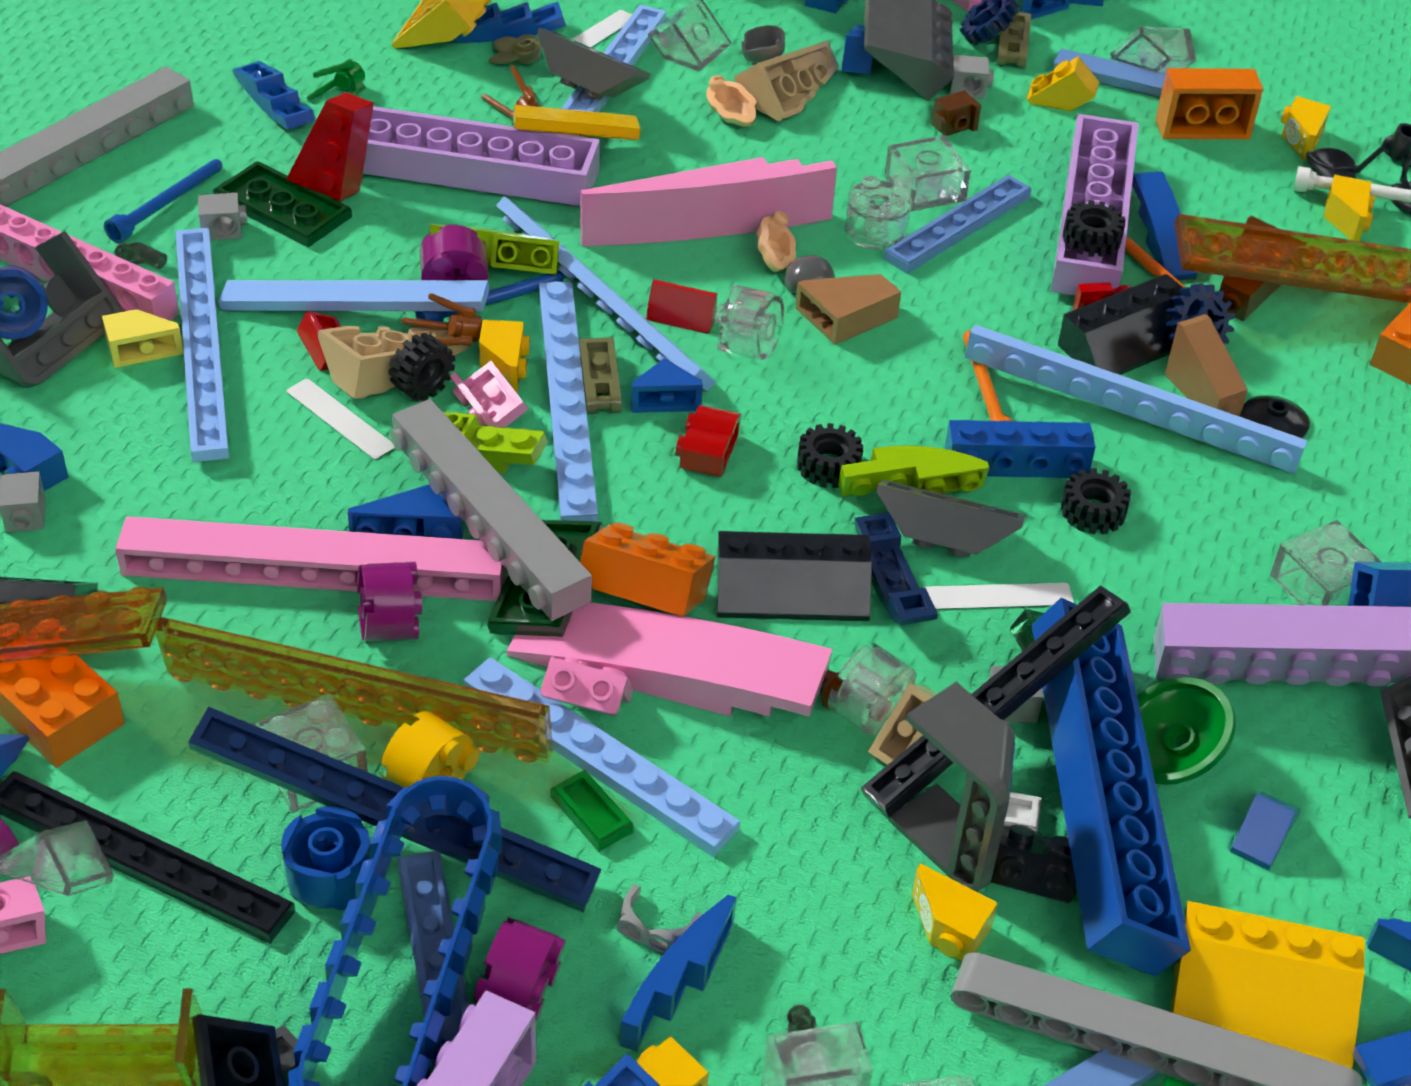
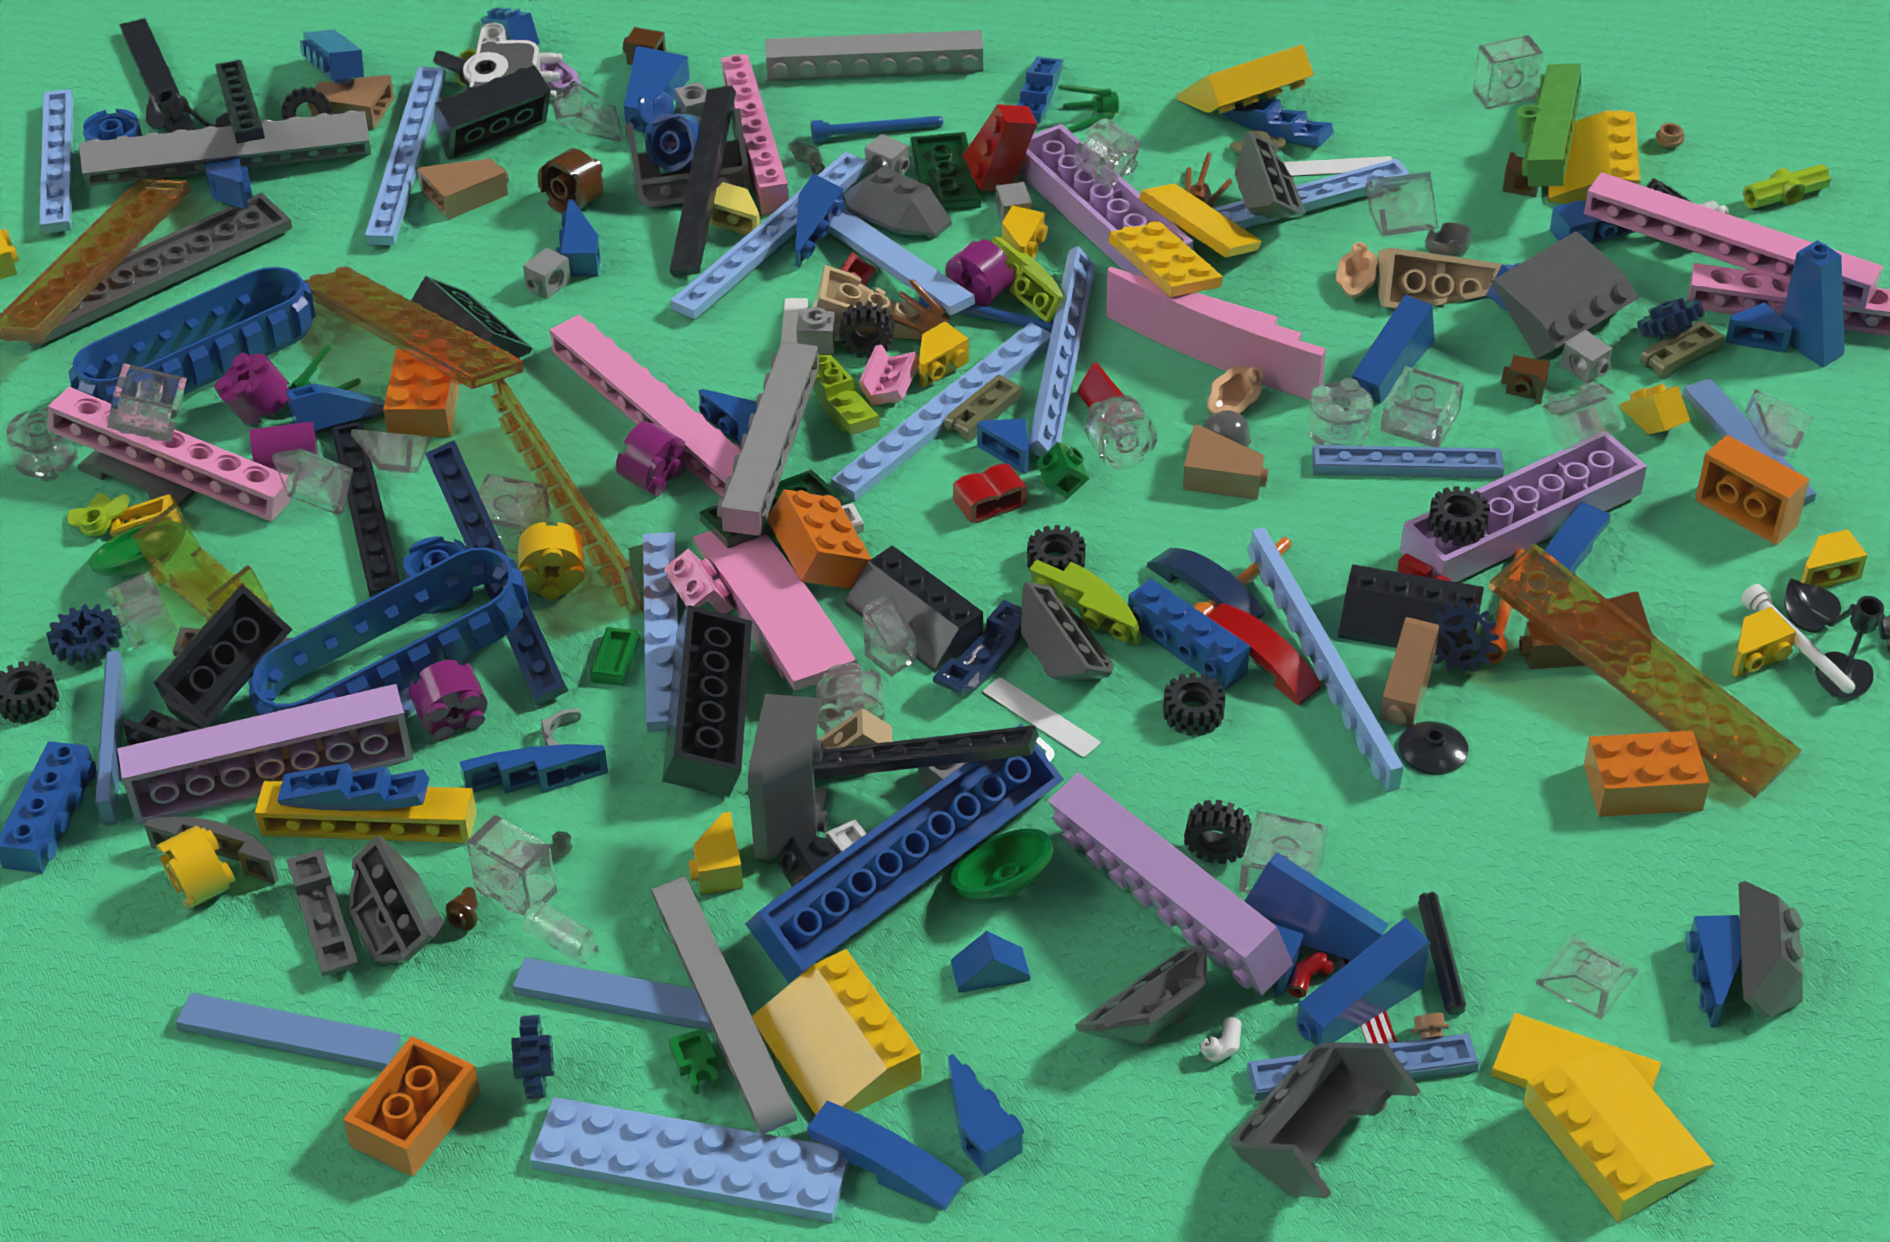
camera: 50 degrees right, 0 degrees up
(91, 324) = (702, 182): none -> black tile
(101, 771) = (393, 451): none -> clear slope
(232, 296) = (817, 206): none -> blue slope
(280, 249) = (897, 204): none -> dark grey wedge
(374, 396) = (818, 329): none -> light grey brick
(390, 196) = (1011, 195): none -> light grey brick
(426, 208) = (1024, 229): none -> yellow slope
(455, 100) = (1107, 152): none -> clear brick
(614, 160) = (1165, 259): none -> yellow plate
(744, 382) = (1063, 470): none -> green brick
(760, 781) = (708, 701): none -> black brick
(817, 611) = (888, 636): none -> clear slope
(847, 137) = (1398, 345): none -> blue slope
(966, 396) = (1206, 578): none -> dark blue slope
(1059, 110) = (1583, 415): none -> clear brick
(1105, 420) = (1271, 651): none -> red slope
(1271, 579) = (1209, 818): none -> black tyre

